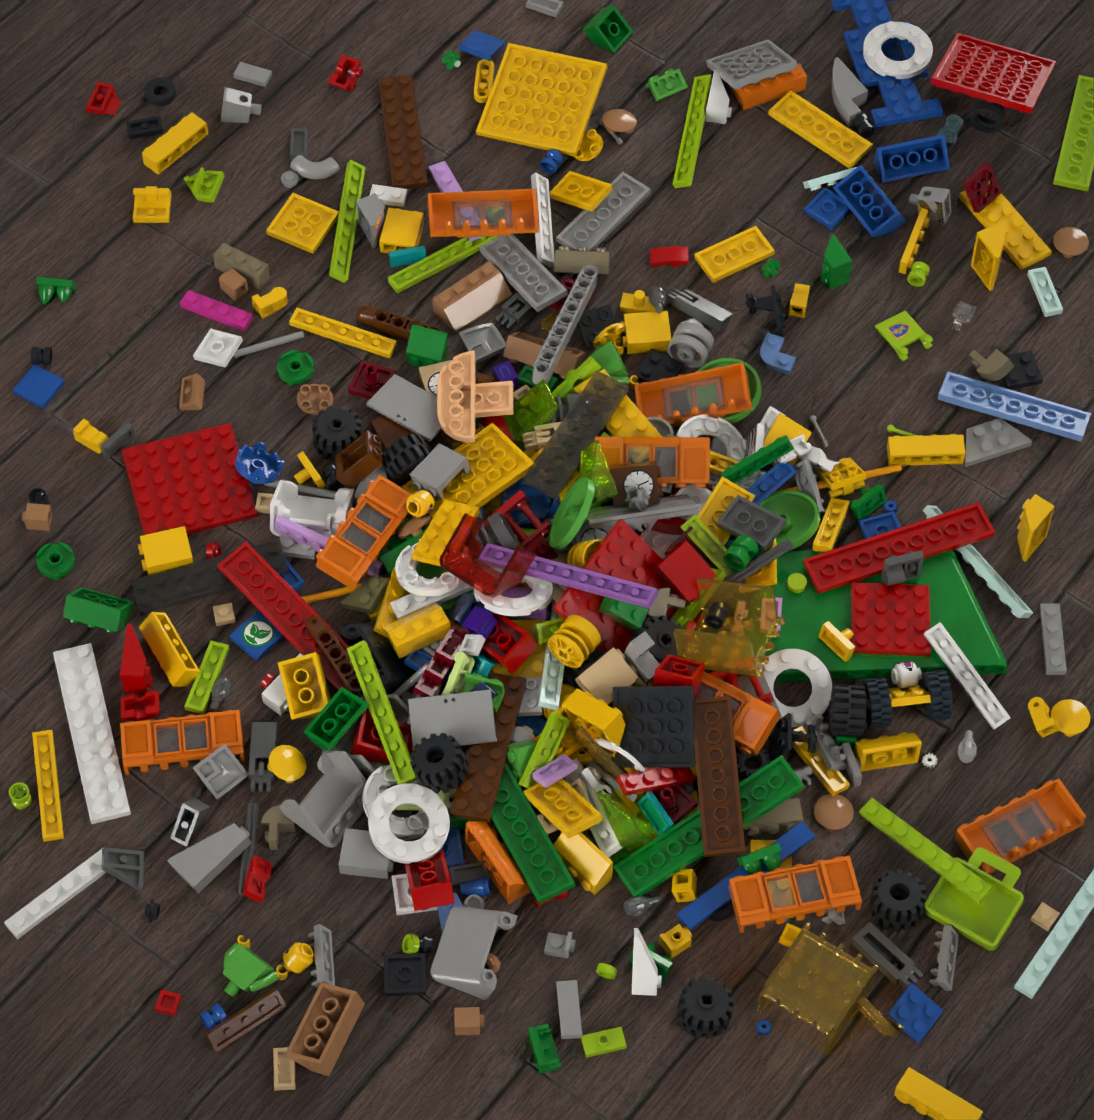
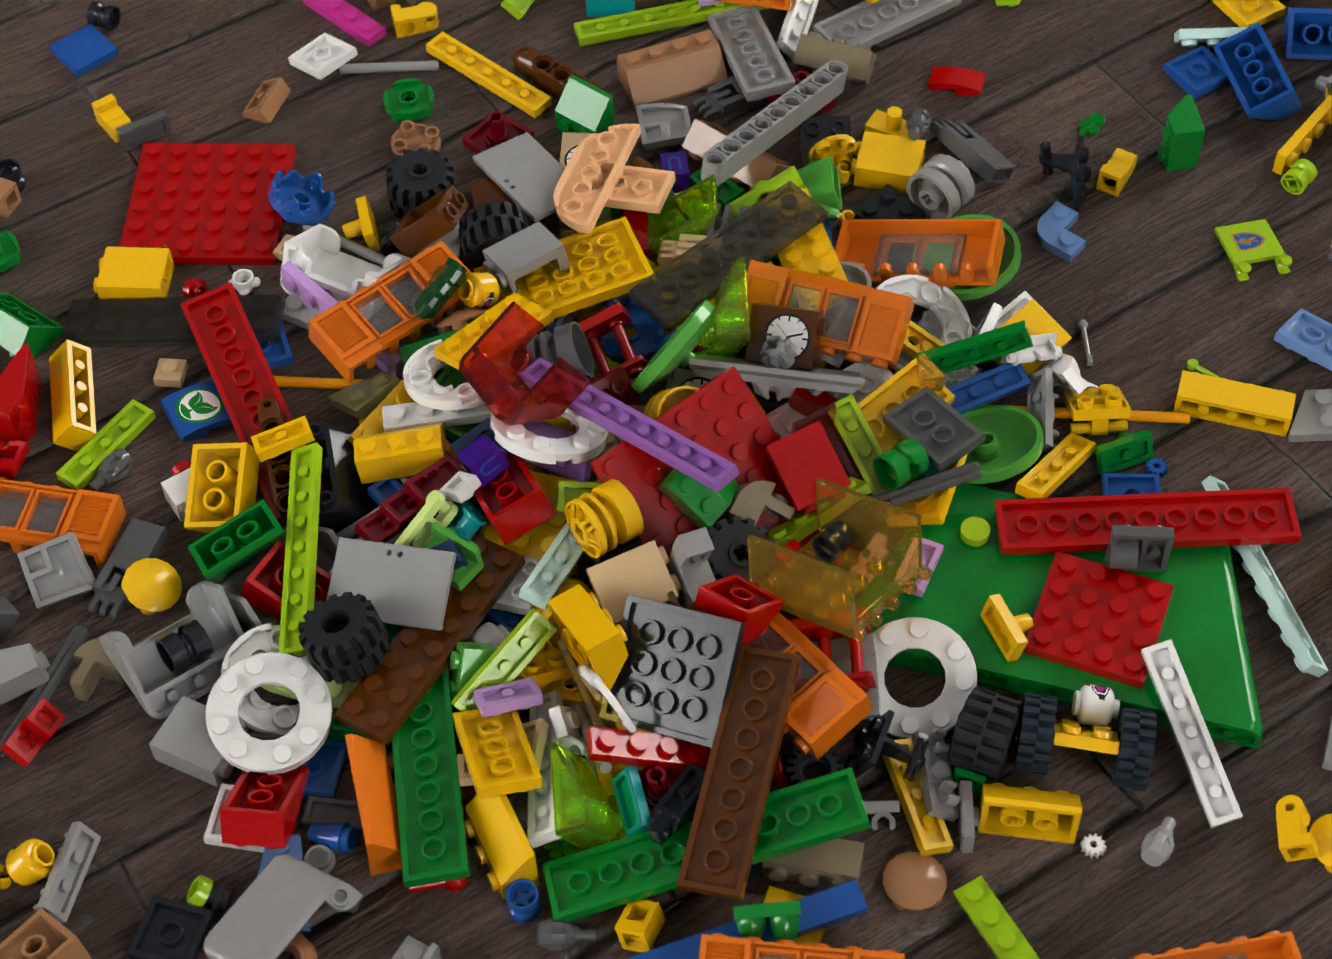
camera: 20 degrees right, 5 degrees down
(241, 531) = (244, 281): none -> white plate
(333, 796) = (187, 644): none -> black wheel
(338, 643) = (282, 438): none -> yellow plate
(396, 510) = (440, 289): none -> dark green rock
(609, 887) = (525, 894): none -> blue wheel
(685, 805) = (677, 804): none -> black hinge
(734, 254) = (1047, 97): yellow plate -> none
(736, 486) = (929, 374): none -> clear yellow slope

